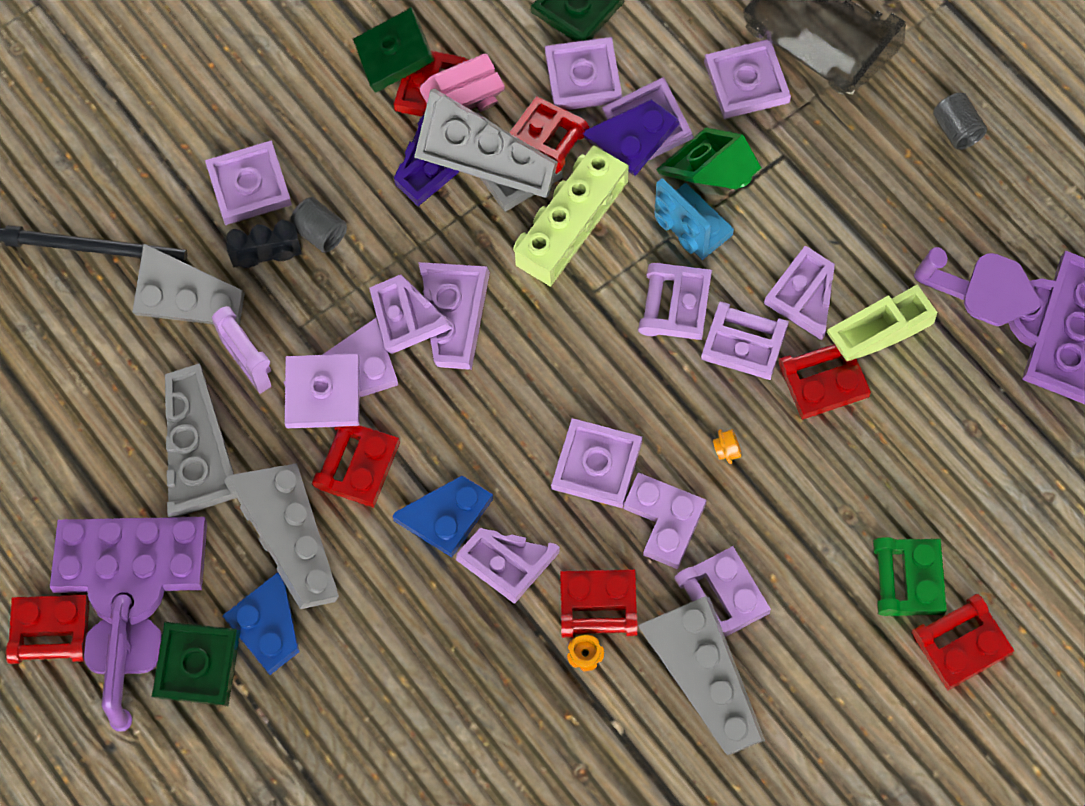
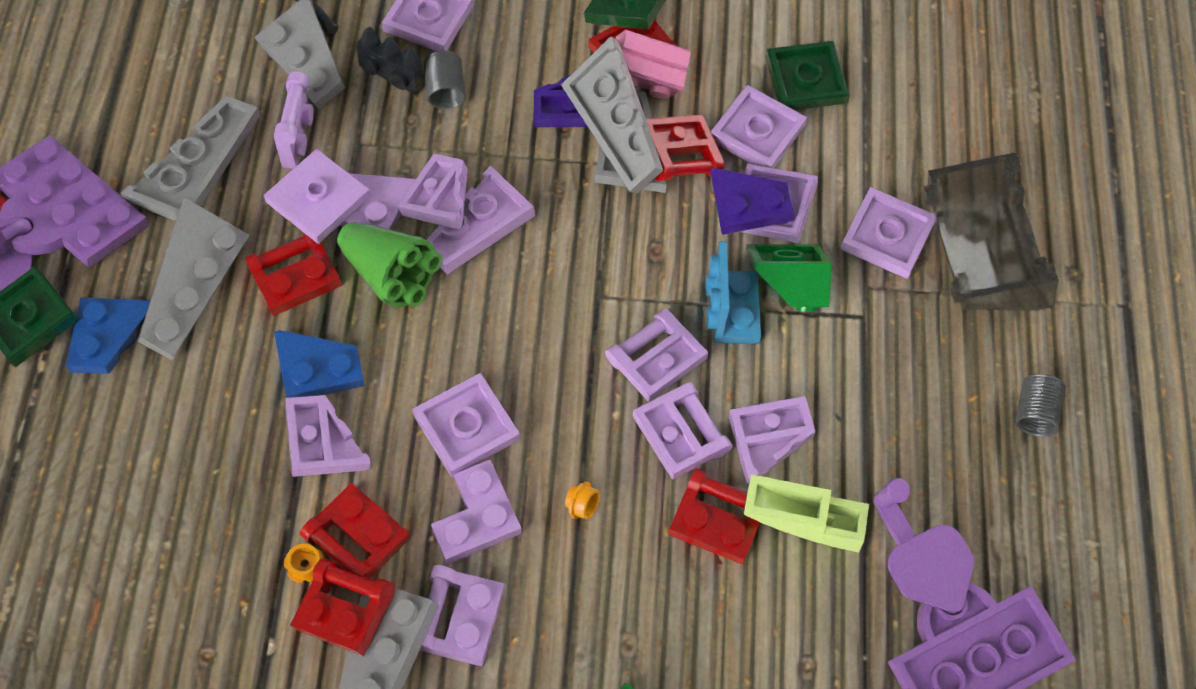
camera: 35 degrees right, 5 degrees down
(423, 394) = (390, 262): none -> bright green cone
(570, 215) = (640, 223): yellowish green brick -> none
(650, 667) = (339, 620): none -> red plate

